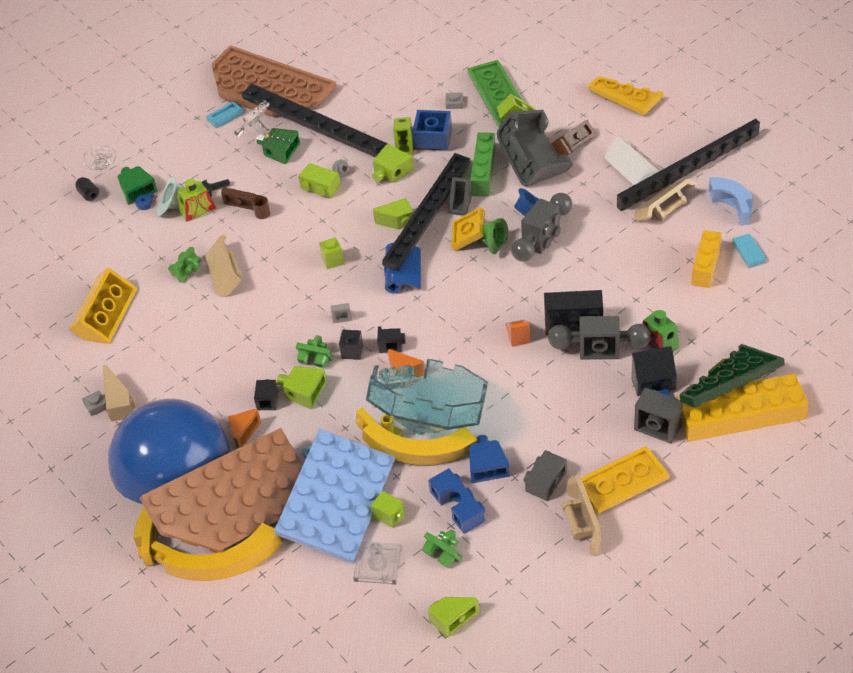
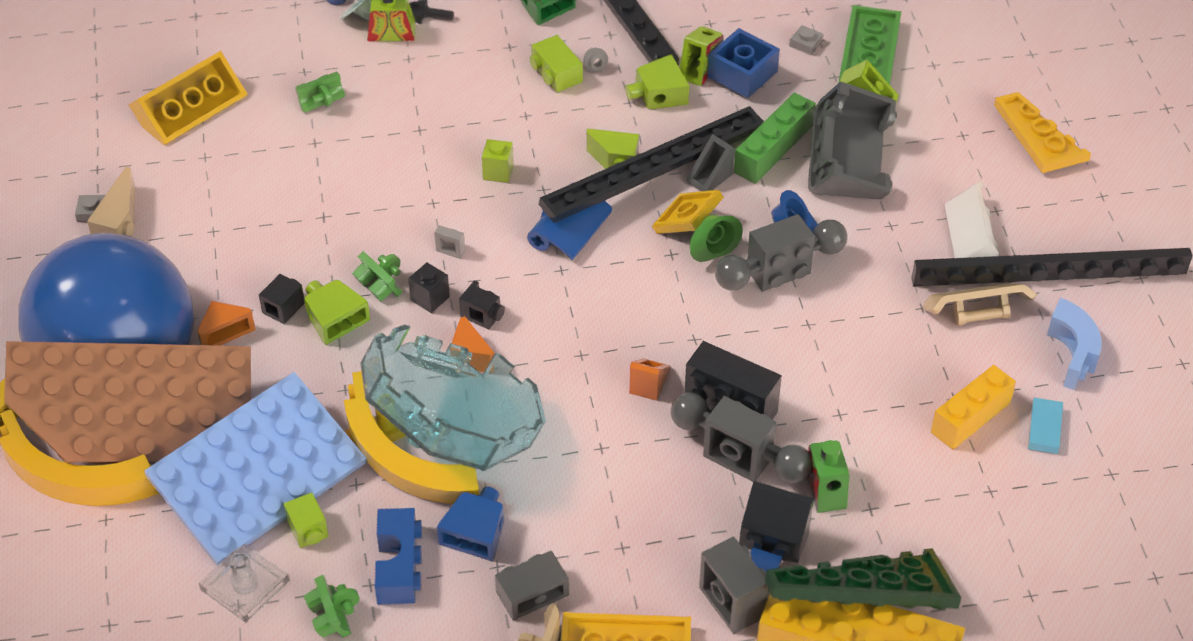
camera: 25 degrees right, 0 degrees up
(223, 267) = (351, 127): tan piece -> none
(247, 201) = (453, 48): reddish brown plate -> none
(573, 138) = (919, 159): plate -> none

